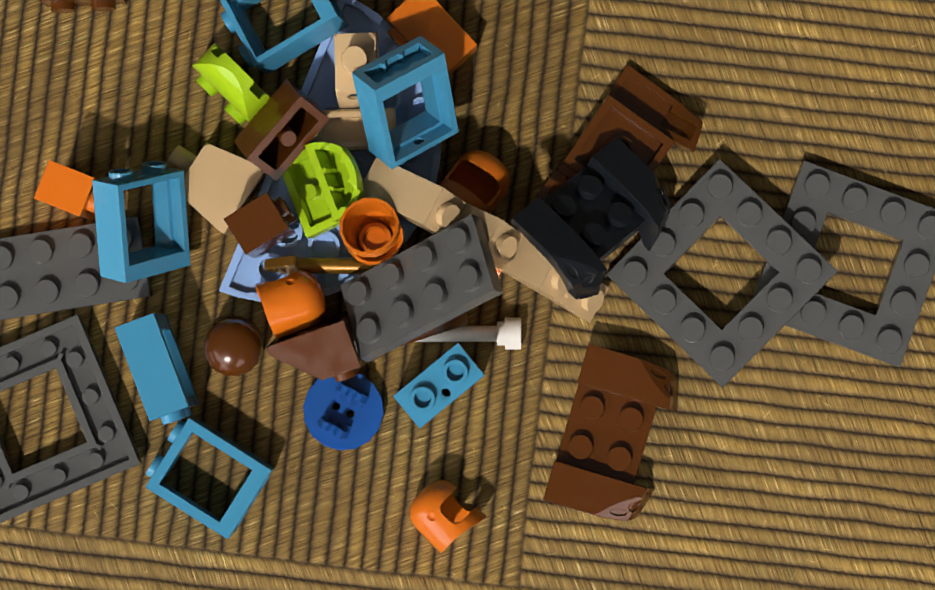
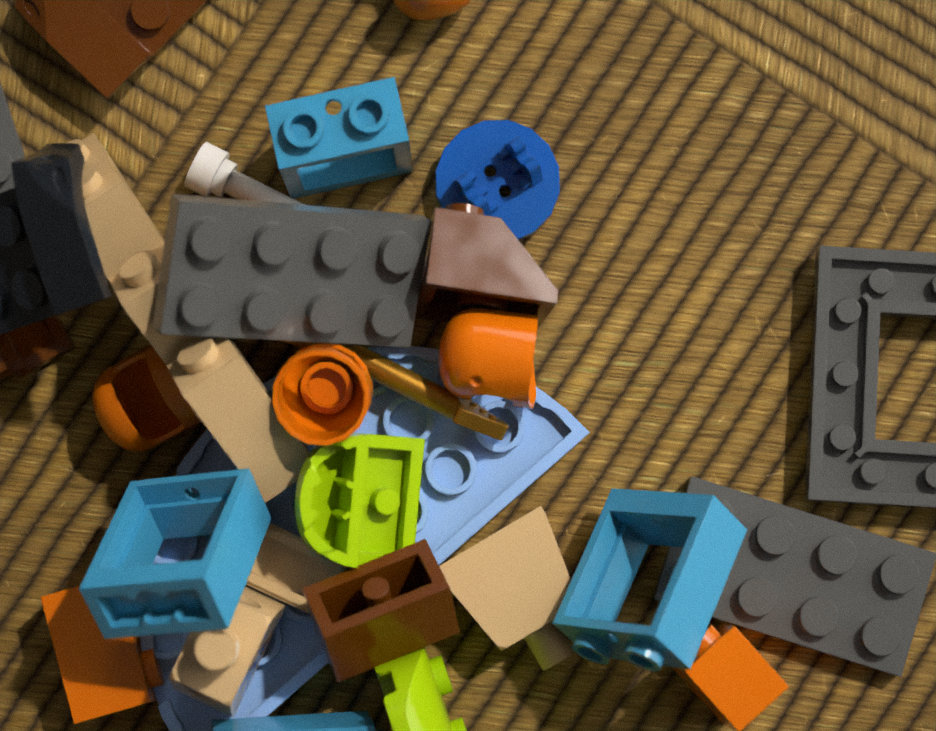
camera: 155 degrees left, 5 degrees down
(158, 368) = (728, 359): dark azure window -> none
(233, 346) = (607, 343): reddish brown helmet -> none
(244, 499) = (698, 124): dark azure window -> none
(261, 224) = (476, 484): reddish brown brick -> none

